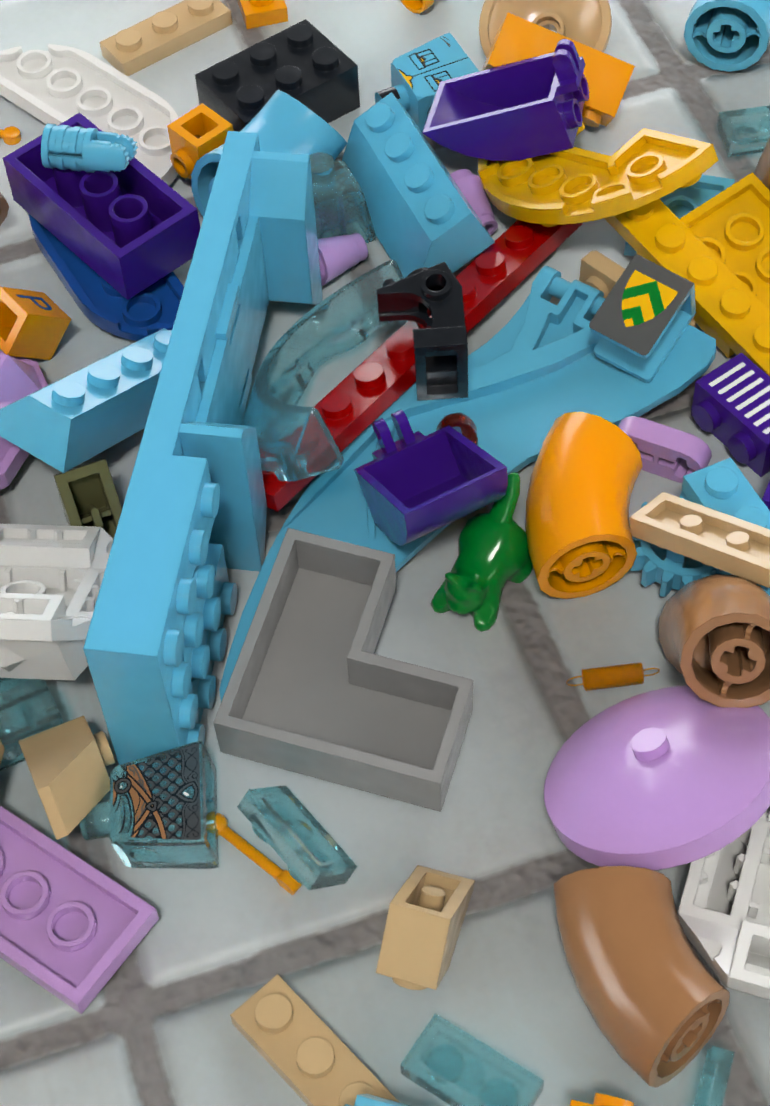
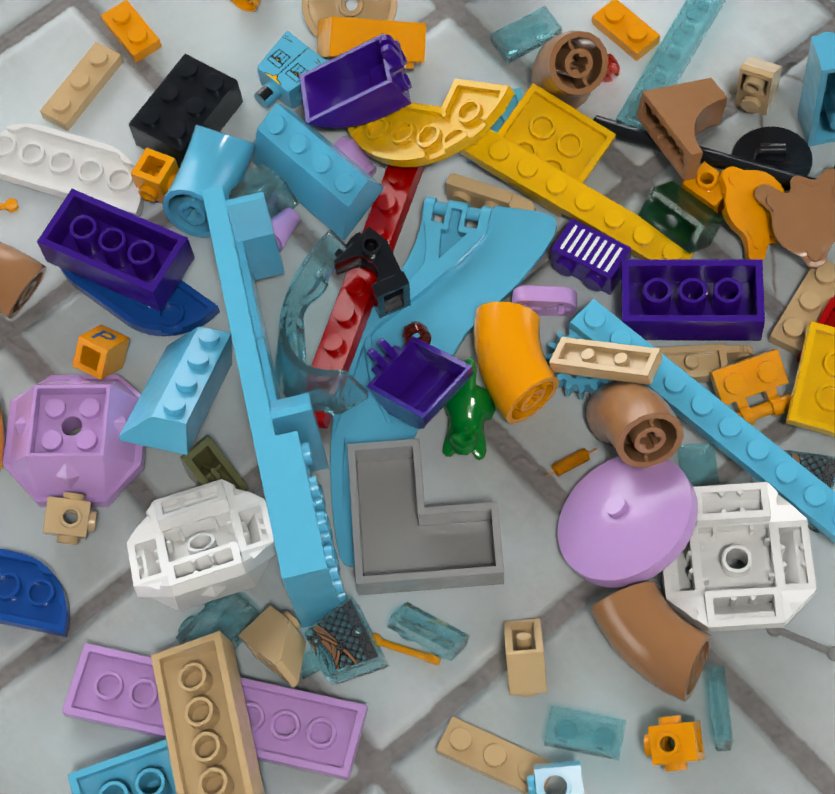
camera: 15 degrees left, 10 degrees up
(85, 149) = (96, 220): medium azure hinge -> none
(643, 318) = (505, 220): piece -> none

